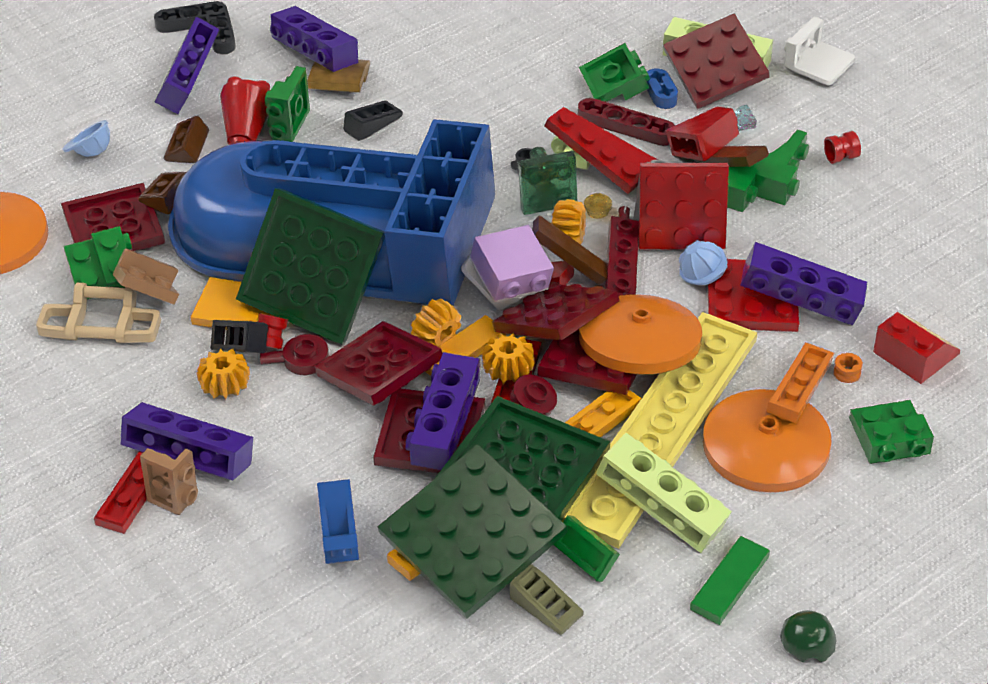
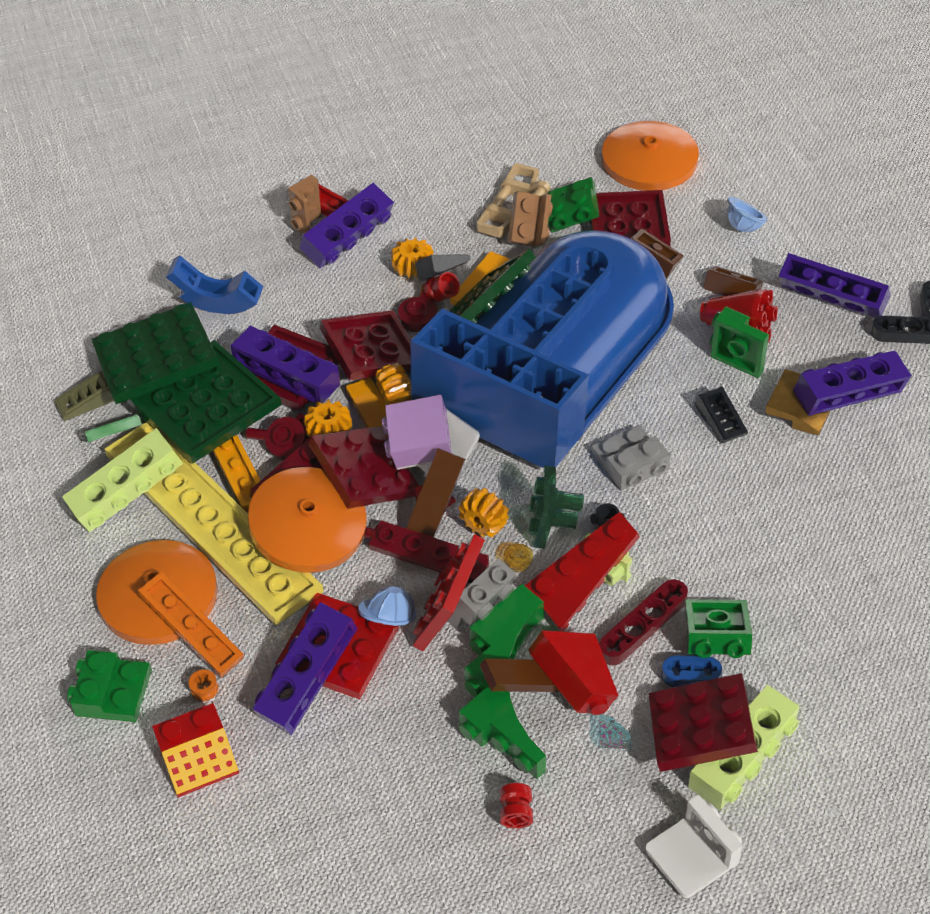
camera: 110 degrees right, 5 degrees up
(729, 580) = (33, 515): green tile -> none

